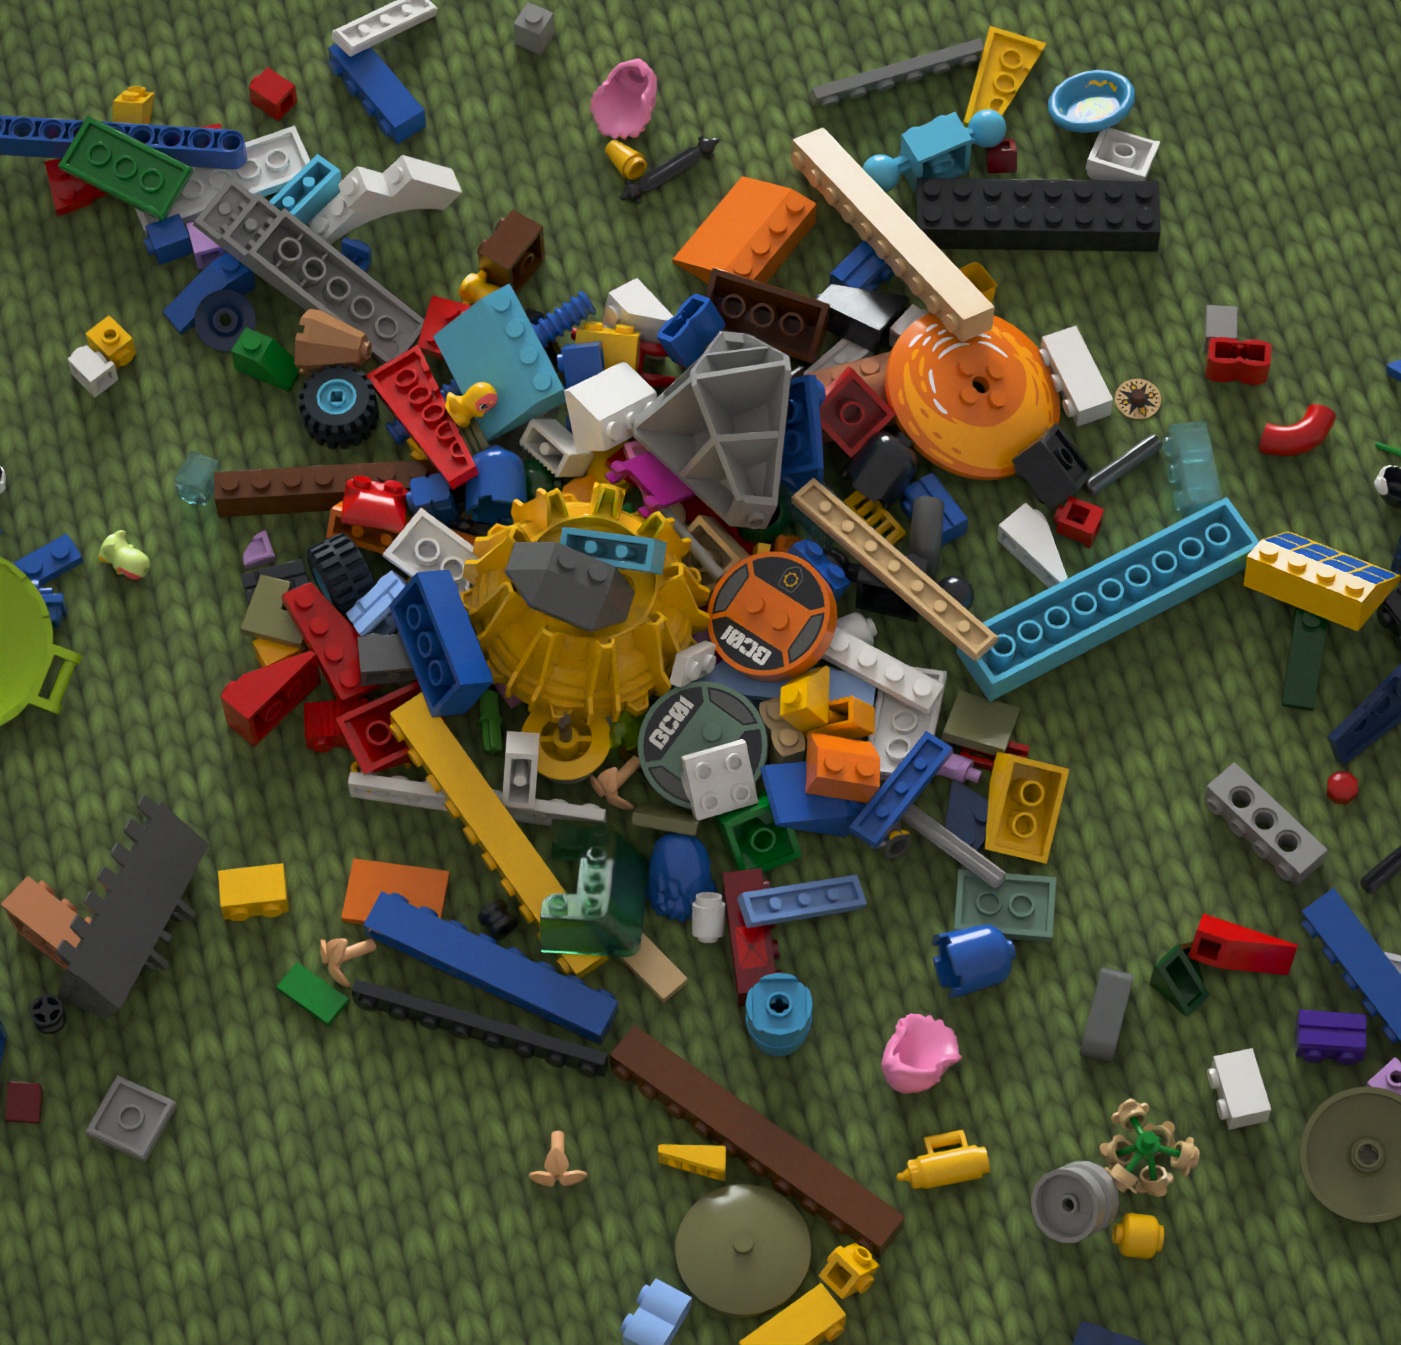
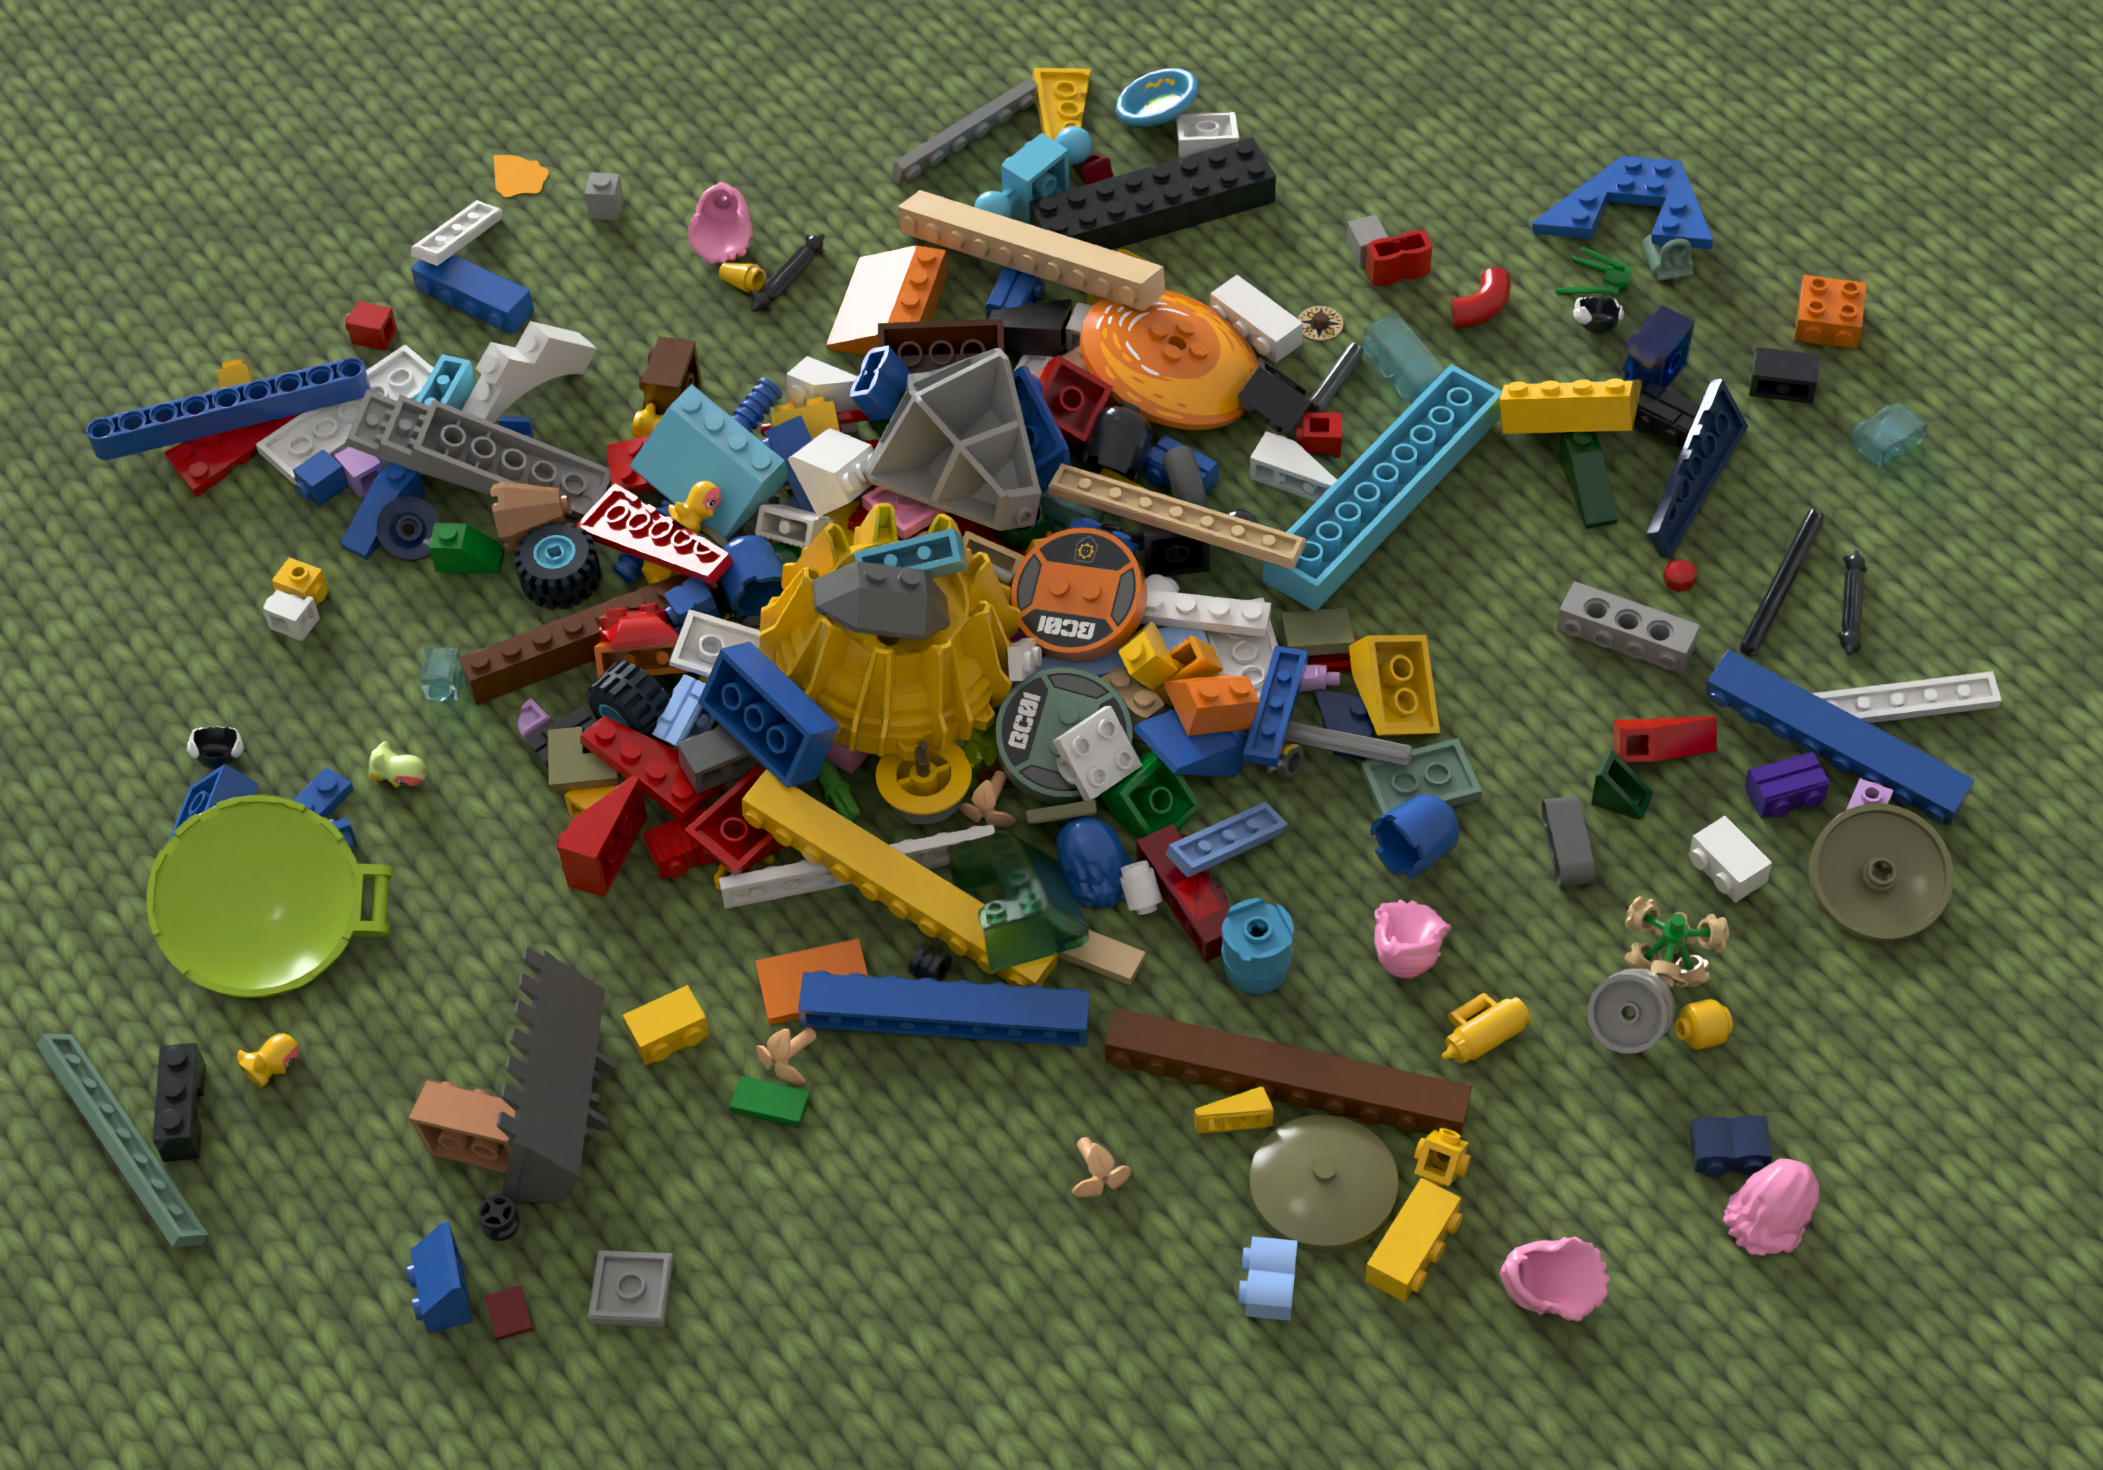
camera: 20 degrees left, 10 degrees down
(126, 168) = (253, 423): green tile -> none
(490, 1031) = (958, 1069): black plate -> none
(520, 770) = (895, 810): white brick -> none
(654, 479) = (909, 510): magenta flag -> none

